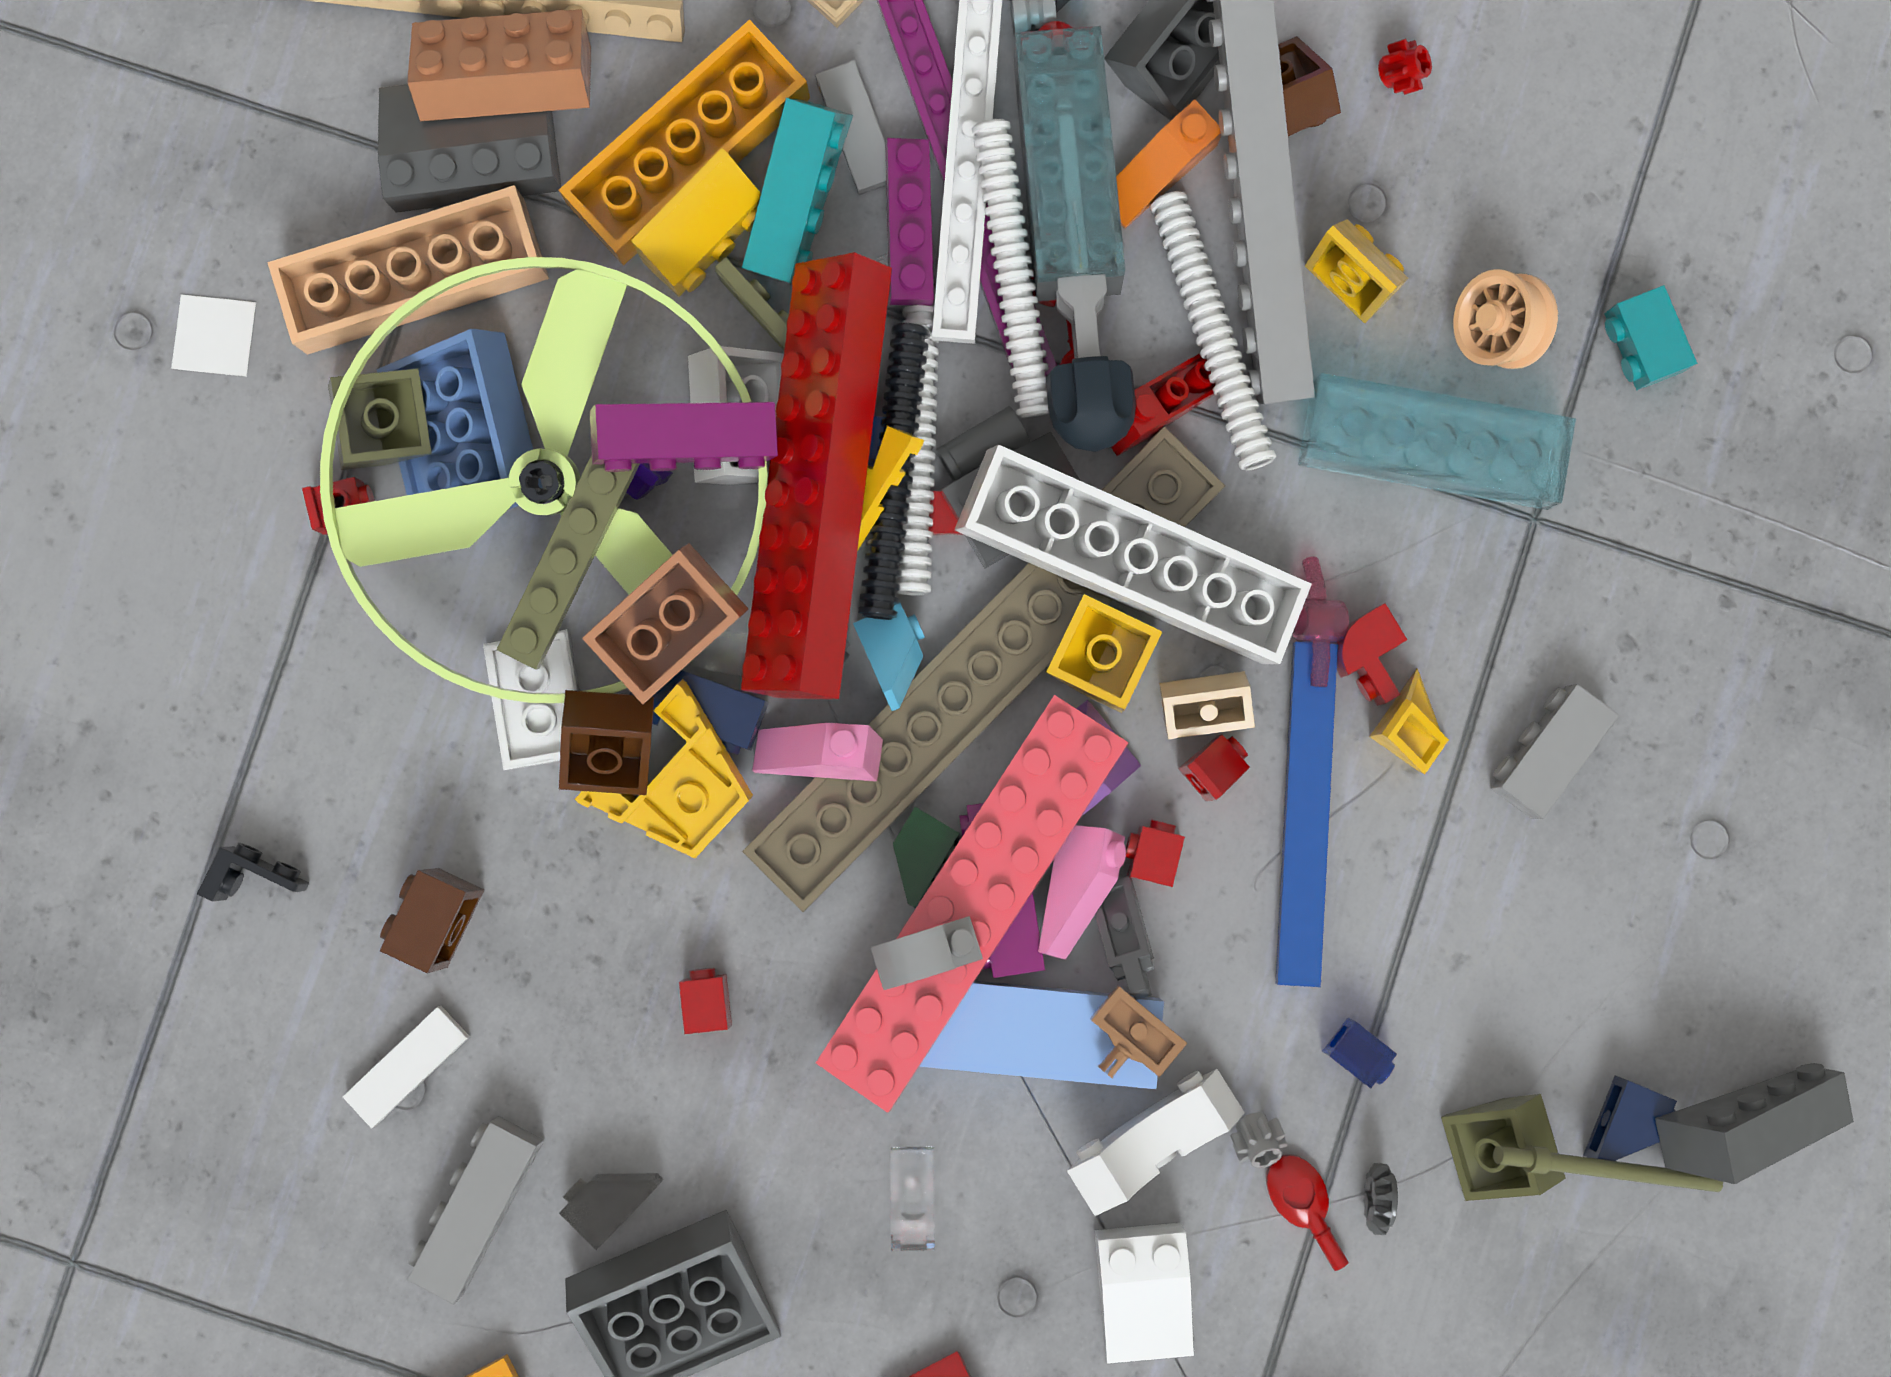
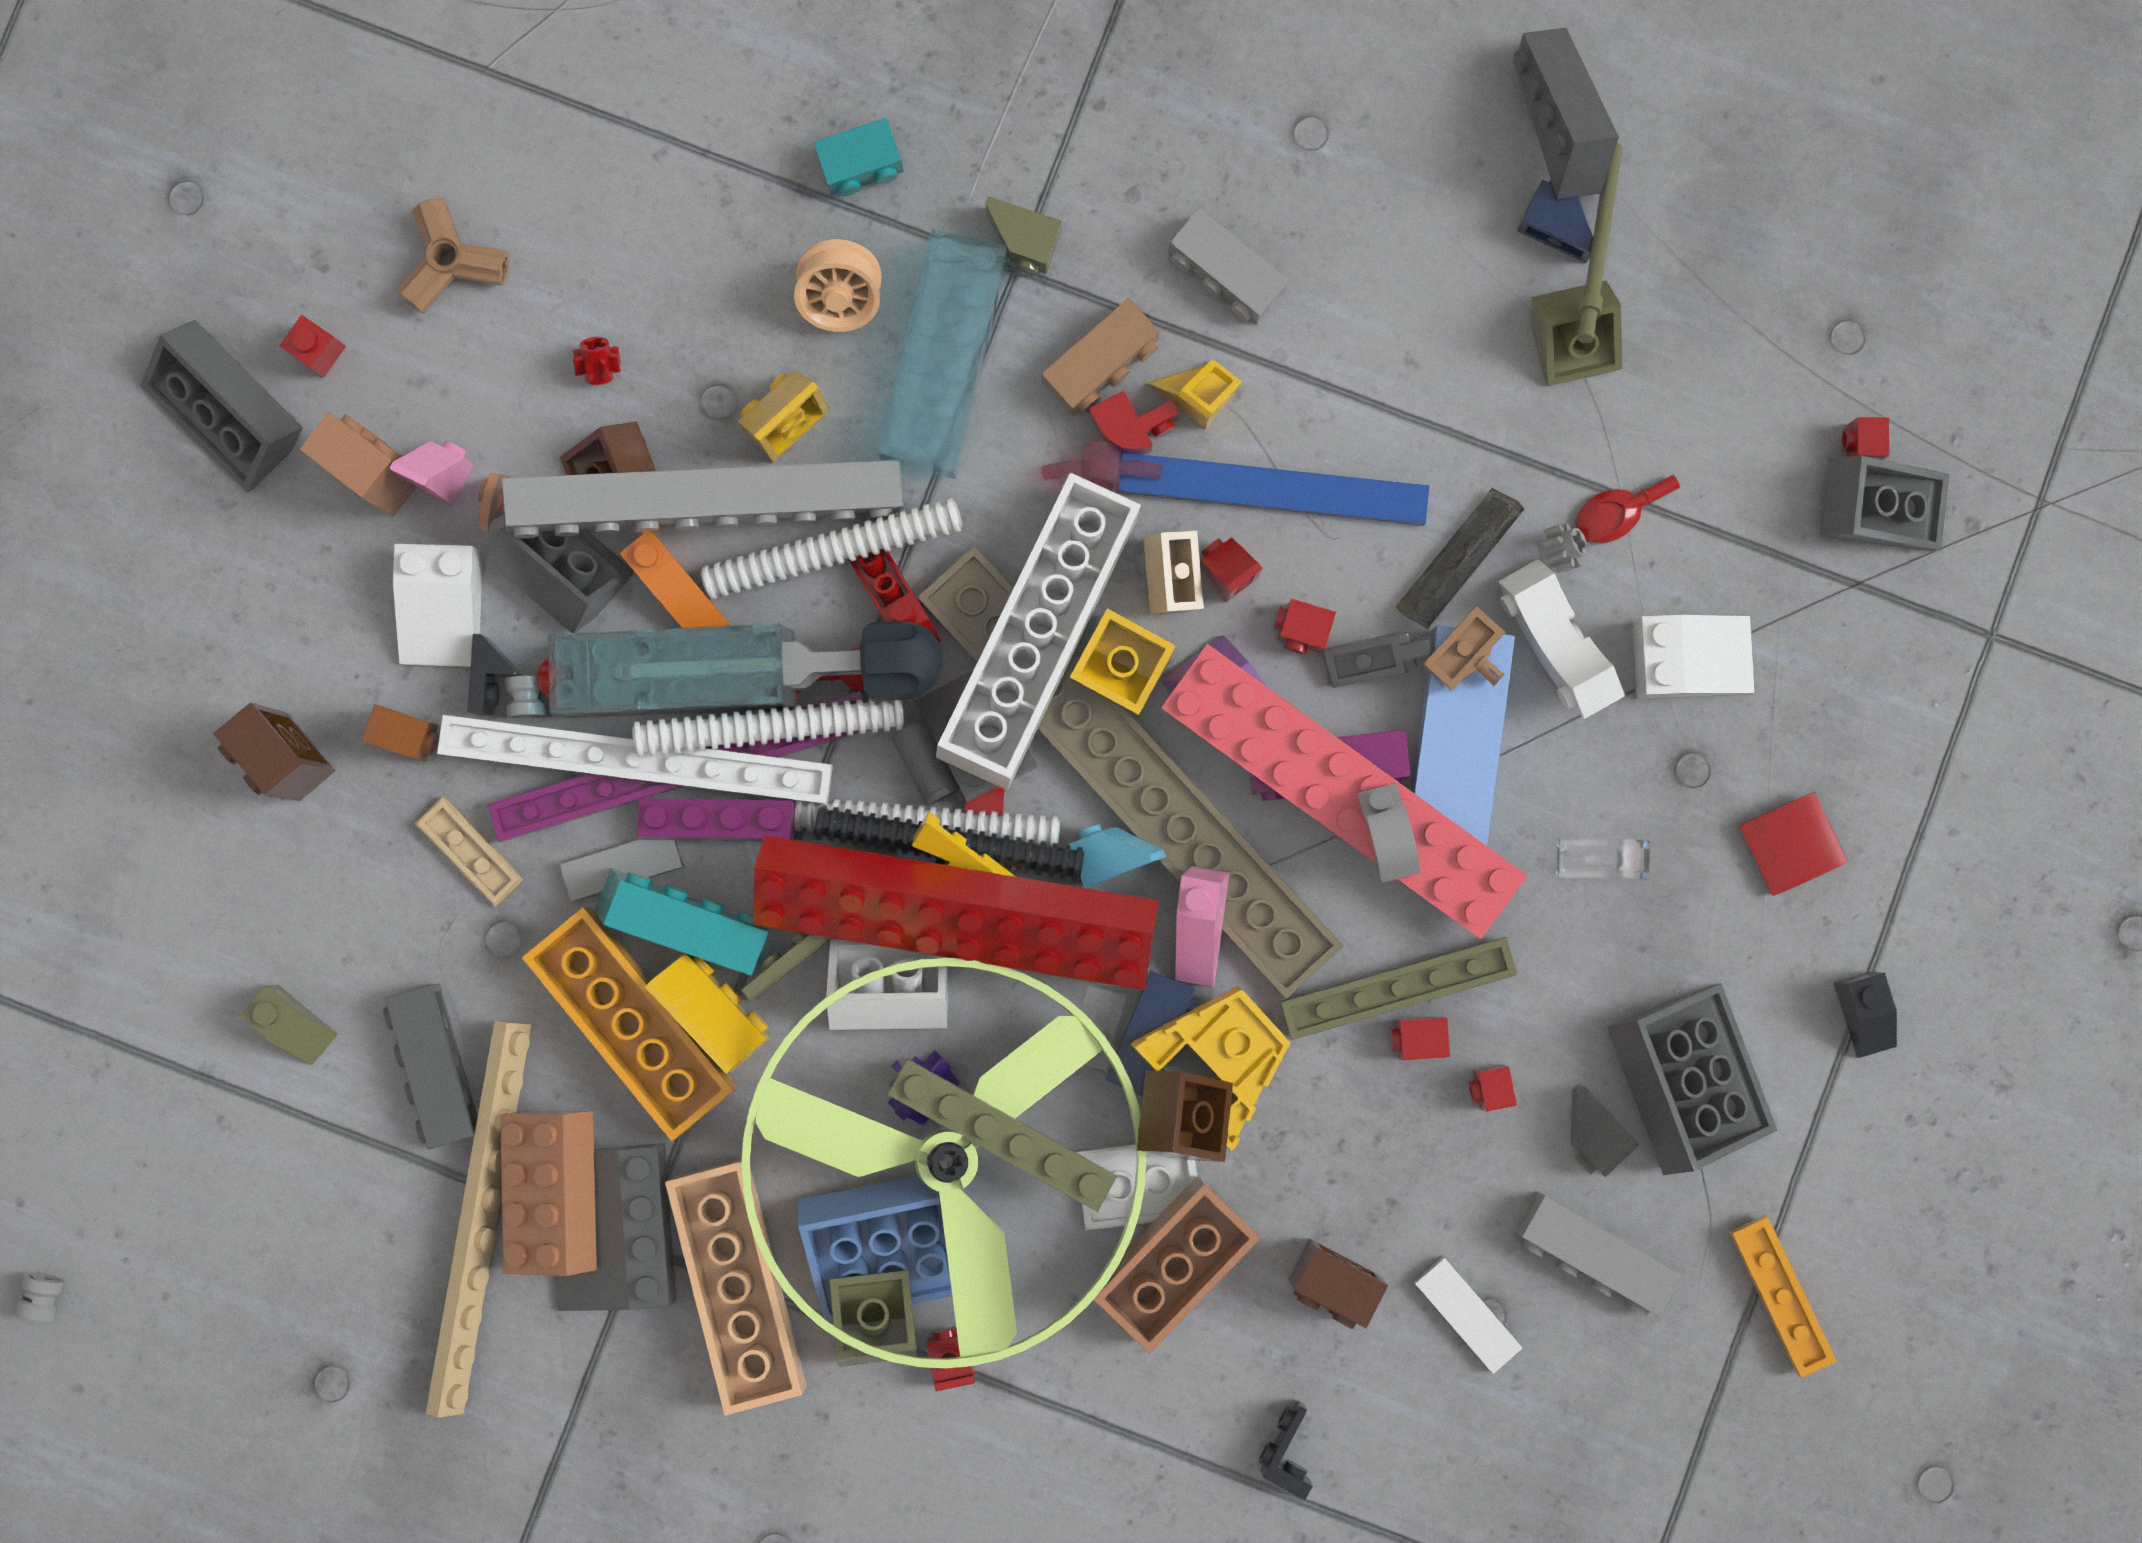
camera: 85 degrees left, 0 degrees up
(213, 335) = (783, 1475): white sticker -> none
(447, 741) = (1175, 1264): none -> nougat brick
(653, 1084) = (1492, 1088): none -> red plate
(665, 623) = (1083, 1054): nougat brick -> none
(683, 434) = (913, 1029): magenta brick -> none
(759, 975) = (1398, 988): none -> olive plate
(920, 851) = (1292, 836): dark green slope -> none
(1078, 886) = (1330, 695): bright pink slope -> none
(1241, 1025) = (1460, 558): none -> clear smoke plate
(1361, 1053) = (1489, 453): clear blue brick -> none
(1380, 1199) = (1618, 443): dark grey gear -> none
(1442, 616) = (1101, 357): none -> medium nougat brick
(1575, 526) = (1027, 234): none -> olive slope

